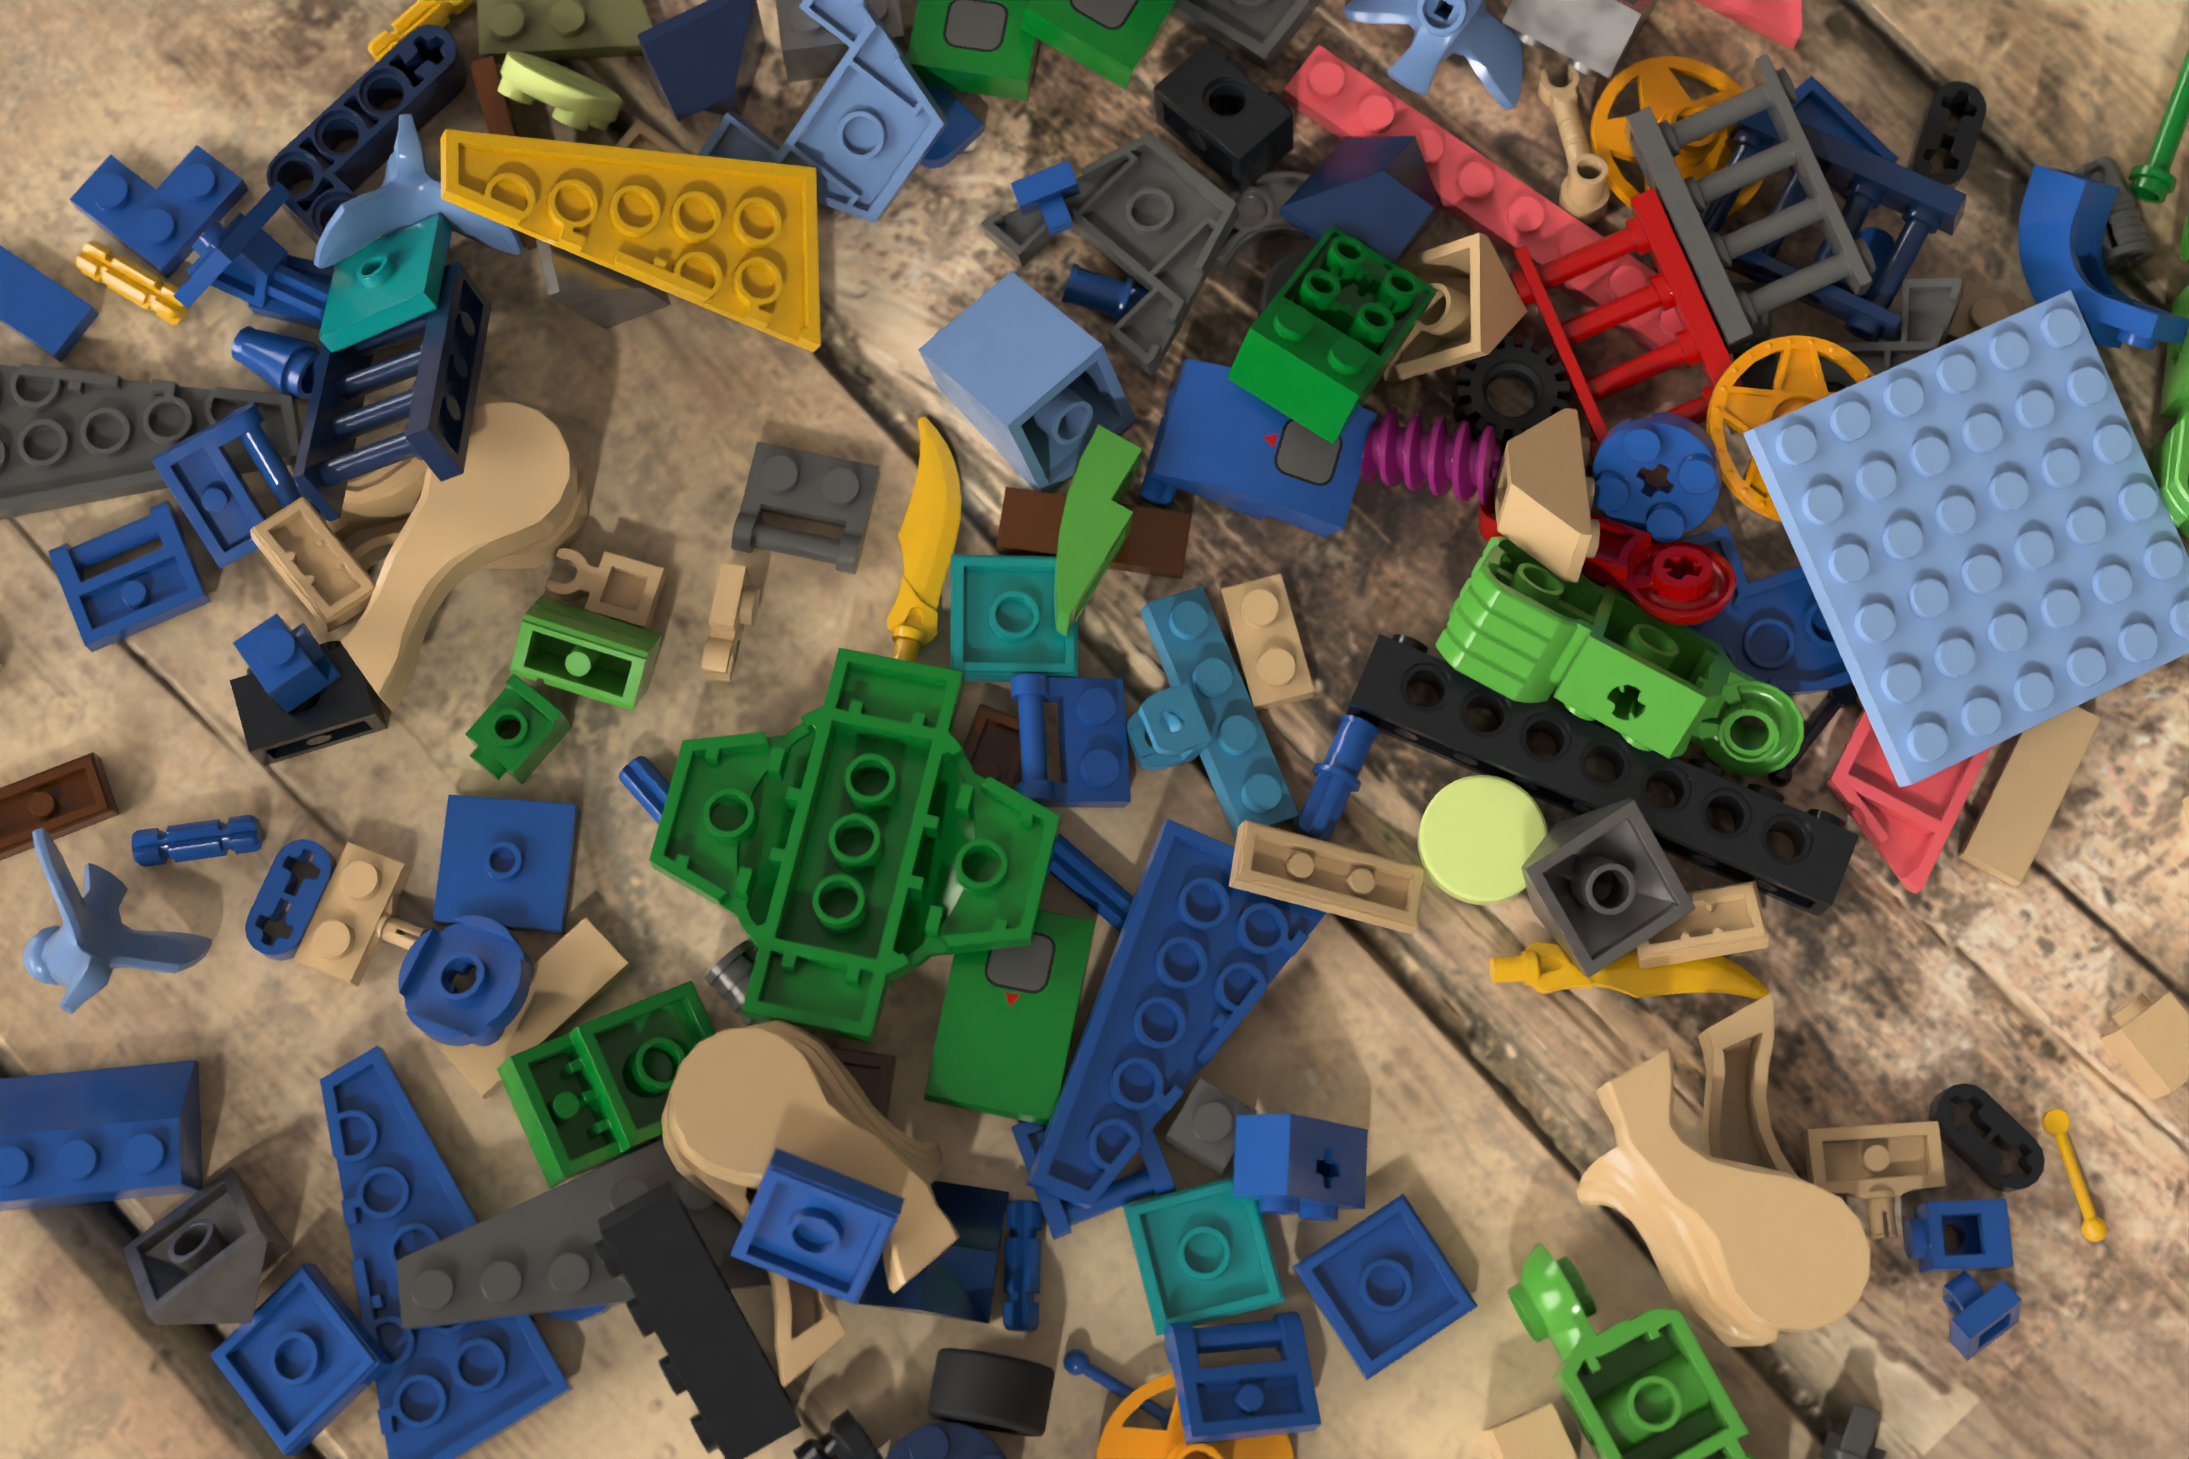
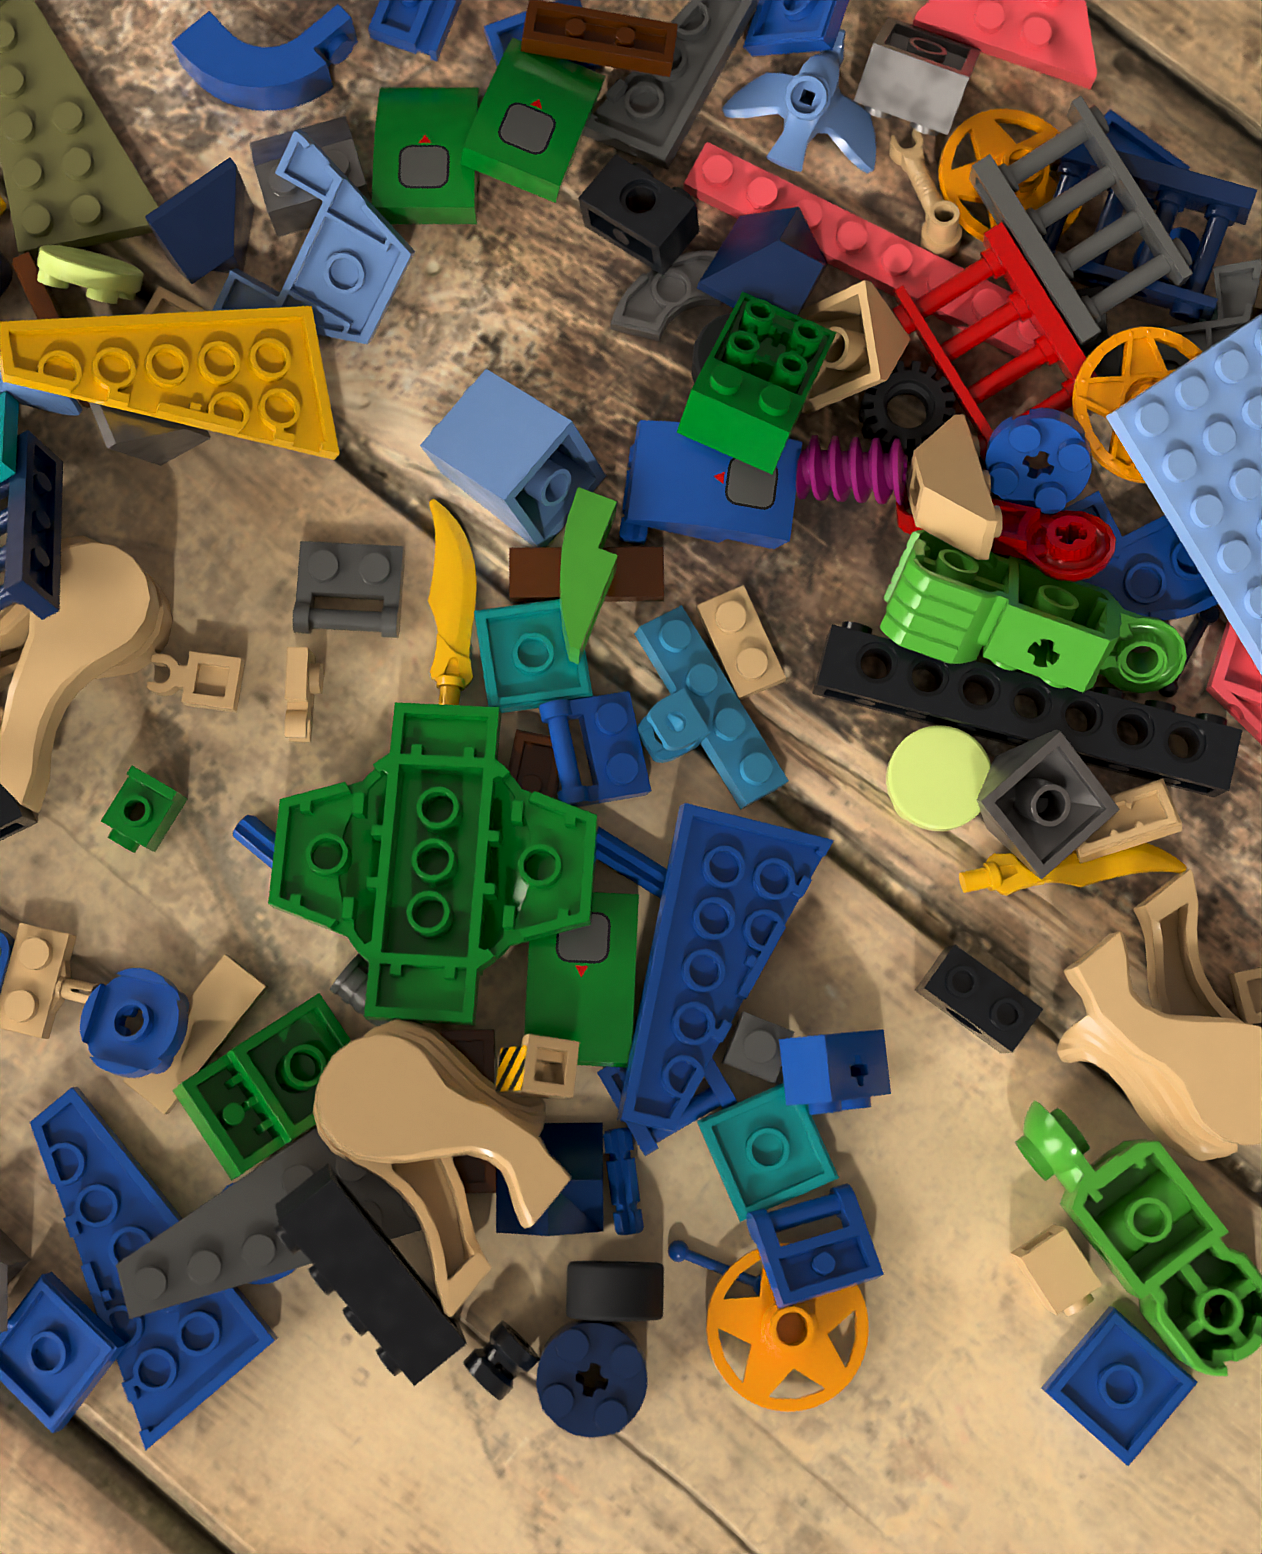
camera: 10 degrees left, 5 degrees up
(507, 862) = (153, 919): blue plate -> none
(585, 653) = (188, 738): bright green brick -> none
(817, 1226) = (454, 1189): blue plate -> none
(941, 1103) = (538, 1068): none -> tan brick
(958, 134) = (424, 260): blue tile -> none
(1047, 193) = (505, 299): blue tile -> none
(1102, 293) = (581, 379): blue axle -> none
(1153, 222) = (592, 308): dark grey wing -> none
(1327, 877) = (819, 828): tan tile -> none
(1336, 777) = (814, 745): blue axle -> none
(1384, 1286) = (916, 1152): blue plate -> none
(1489, 1111) = (979, 999): none -> black brick
(1934, 134) = (1236, 146): black beam -> none

